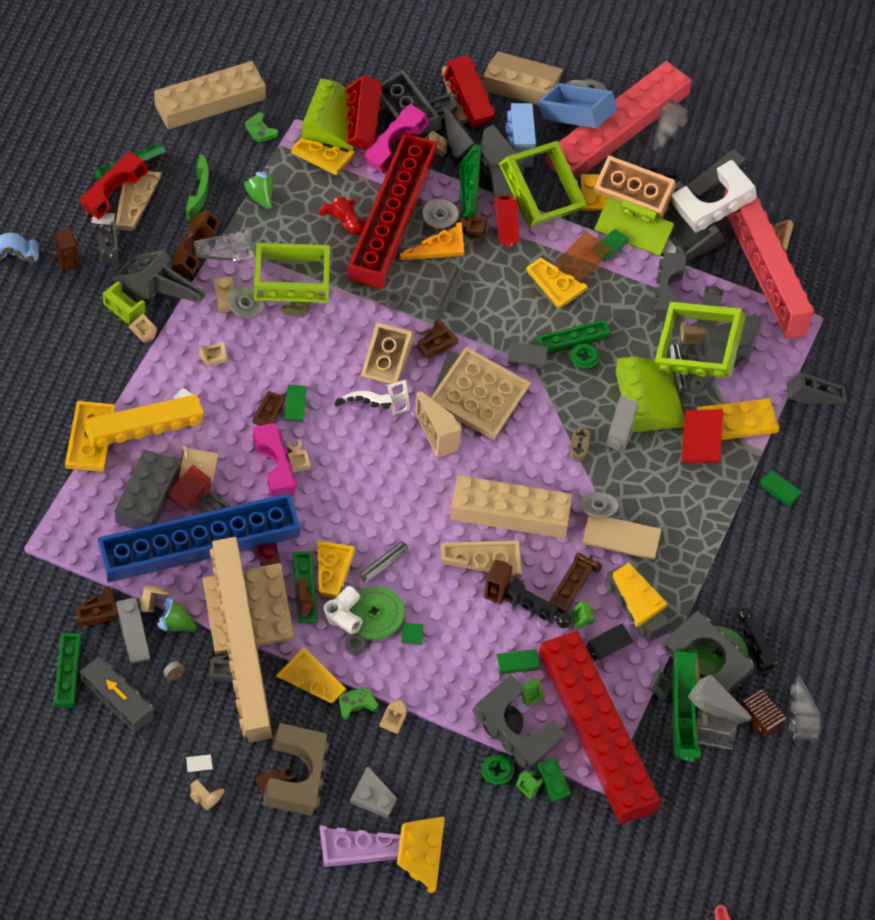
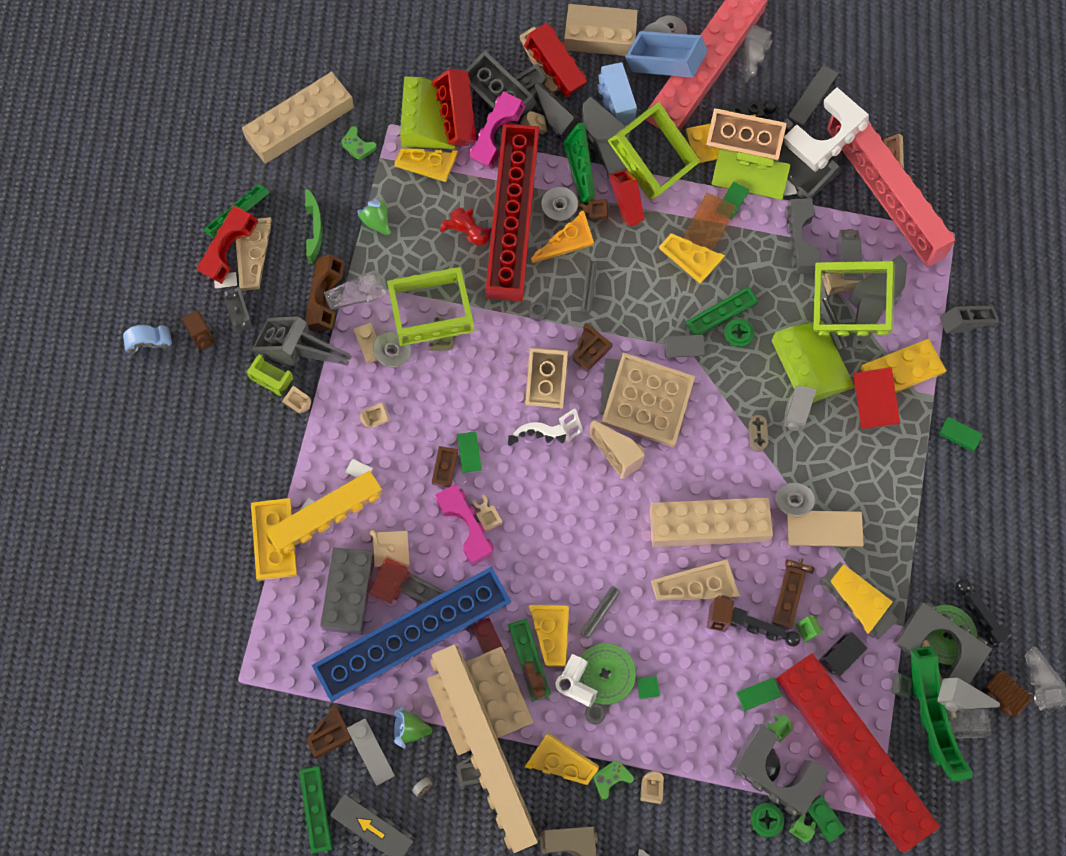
camera: 10 degrees left, 15 degrees up
(147, 600) = (376, 714): tan plate -> none

